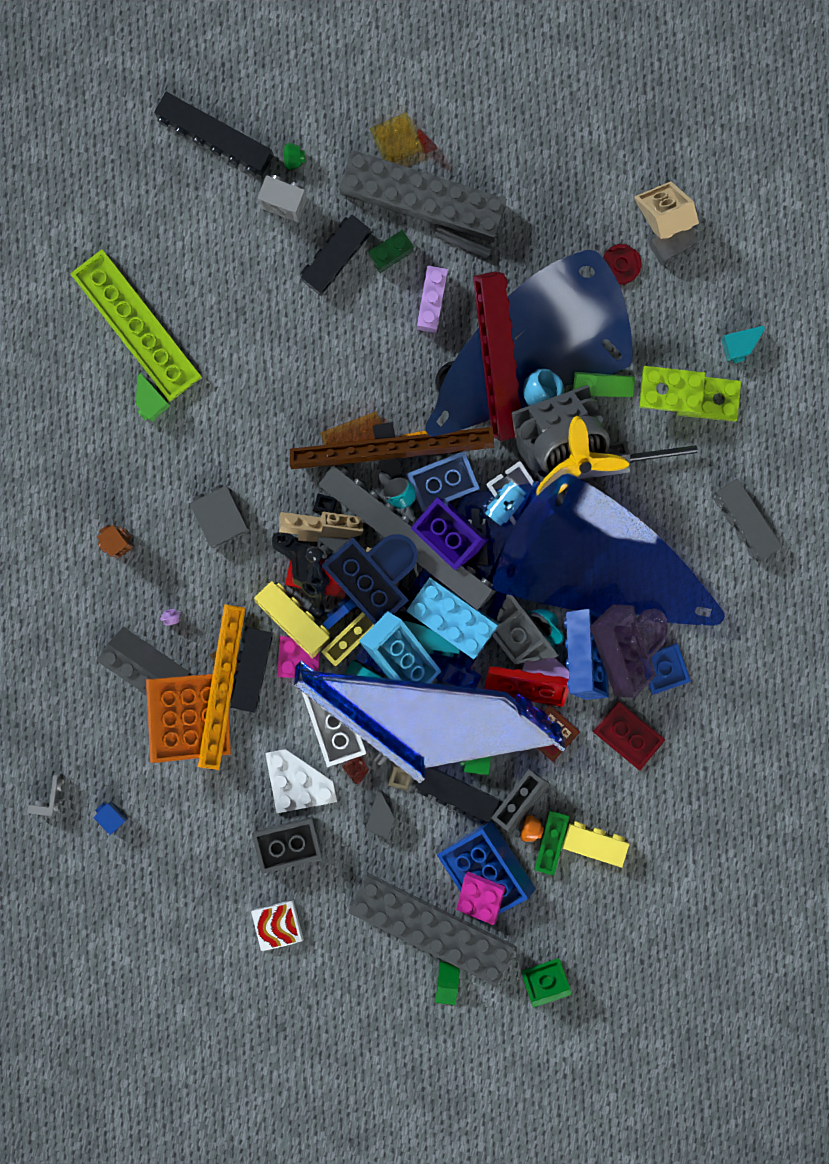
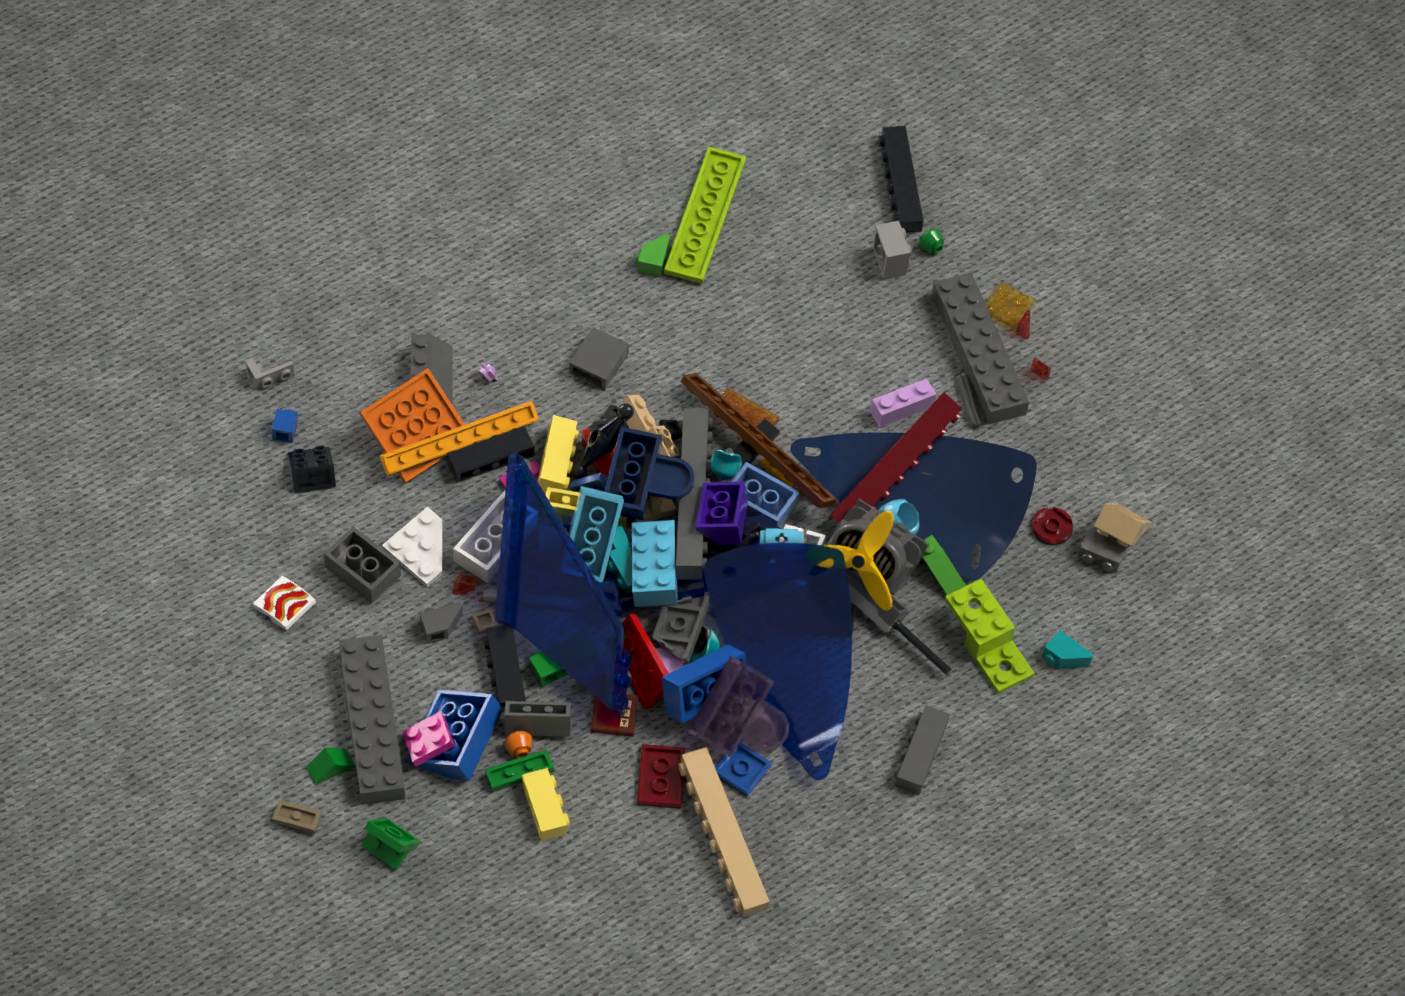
camera: 50 degrees right, 30 degrees down
(114, 541) = (520, 294): dark orange brick -> none
(164, 821) = (312, 469): none -> black bracket
(335, 255) = (880, 316): black brick -> none
(391, 251) = (916, 351): dark green brick -> none
(474, 160) = (1040, 369): none -> clear red slope
(475, 1040) = (297, 816): none -> dark tan plate
(714, 725) = (724, 832): none -> tan brick

